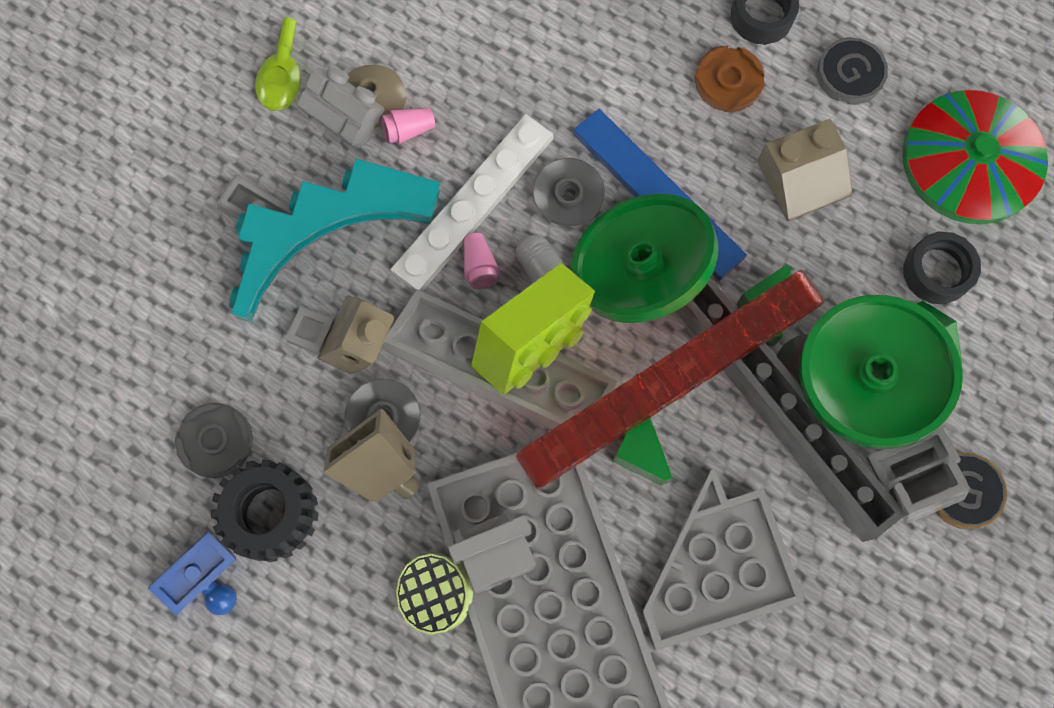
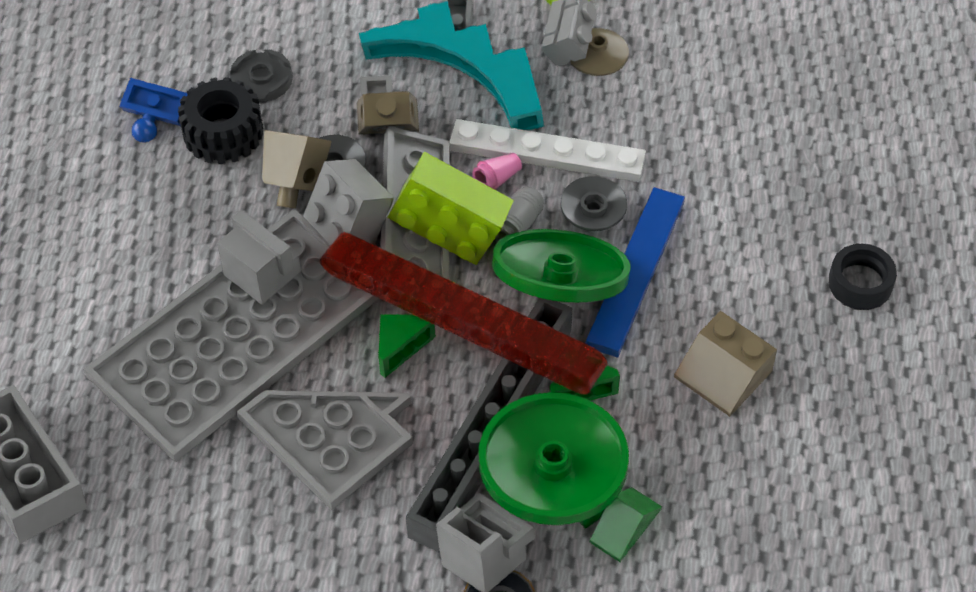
camera: 65 degrees right, 20 degrees down
(406, 124) = (584, 78): bright pink cone -> none
(434, 593) = (200, 249): tile -> none
(468, 428) = (347, 202): none -> light grey brick
(733, 88) = (778, 290): dark orange tile -> none
(852, 70) = (852, 369): black tile -> none
(960, 250) = (699, 480): black tyre -> none
(975, 157) = (834, 499): dish -> none

